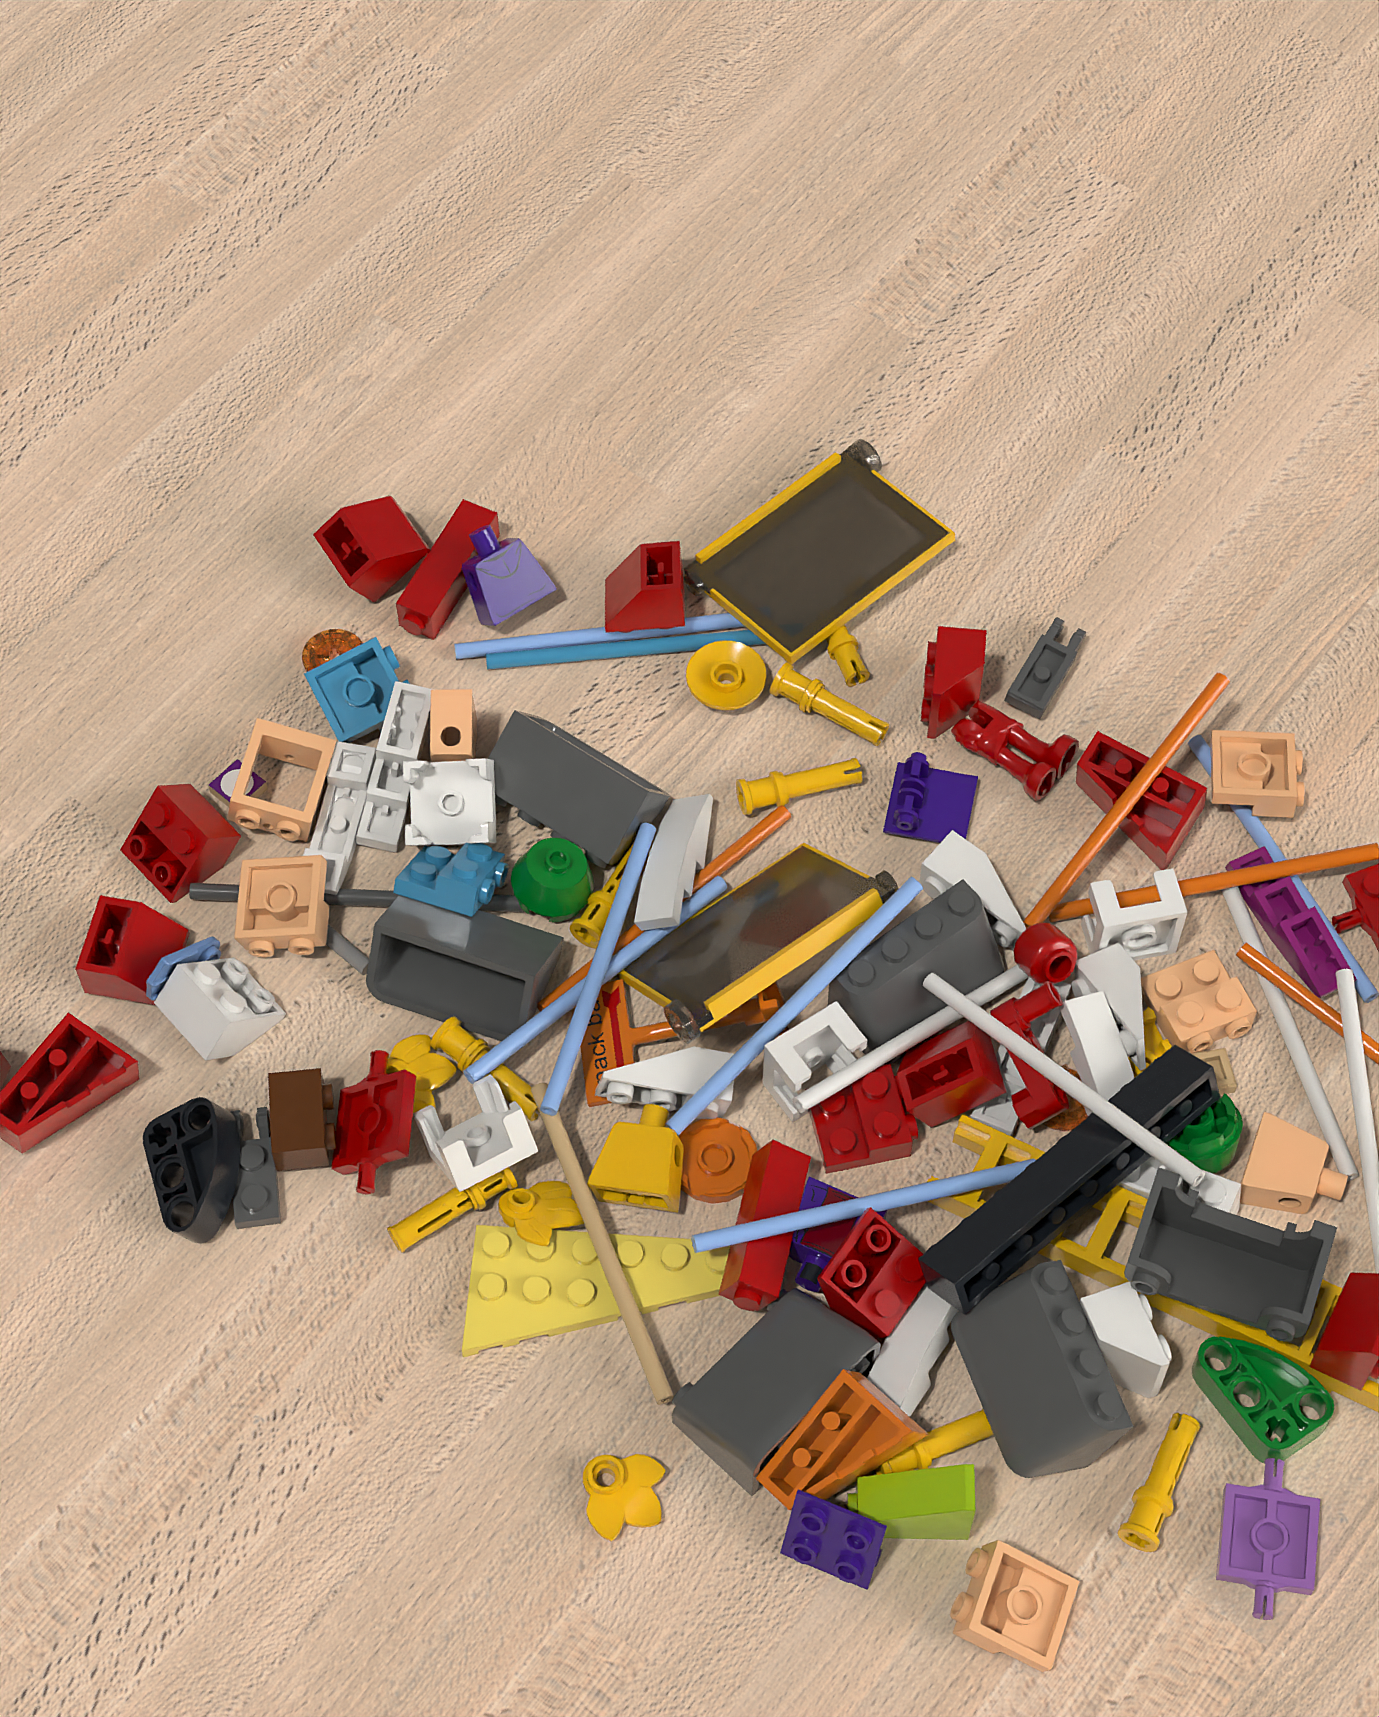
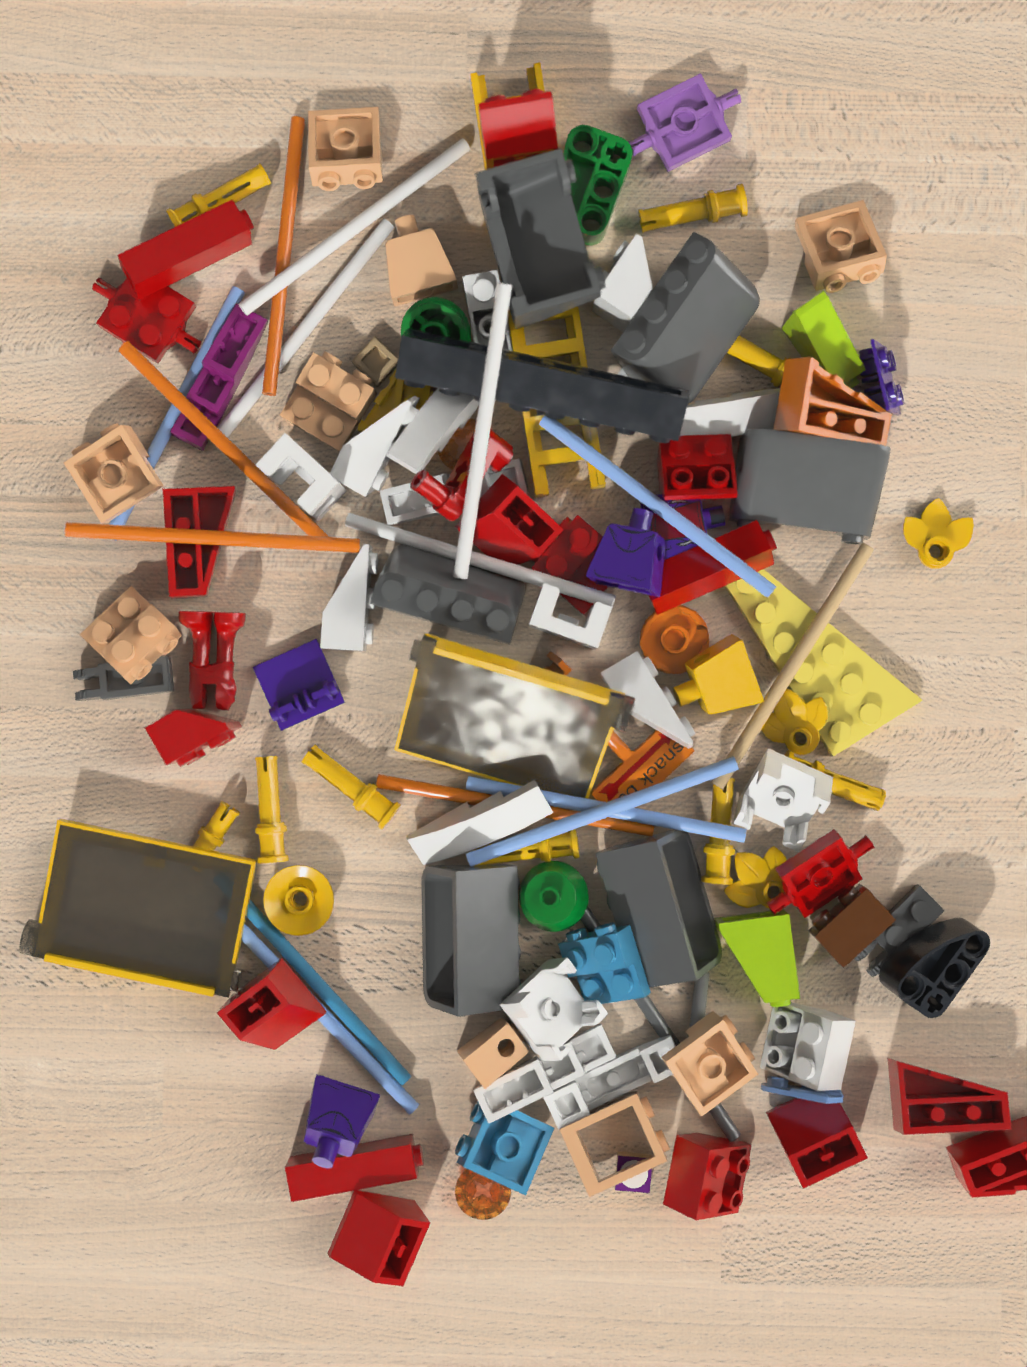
camera: 125 degrees left, 30 degrees up
(340, 1024) = (764, 952): none -> lime slope
(794, 1005) = (548, 648): light blue piece -> none
(830, 1147) = (630, 556): none -> dark purple torso
(1045, 953) = (376, 517): red head -> none
(1084, 692) = (131, 635): none -> light nougat plate

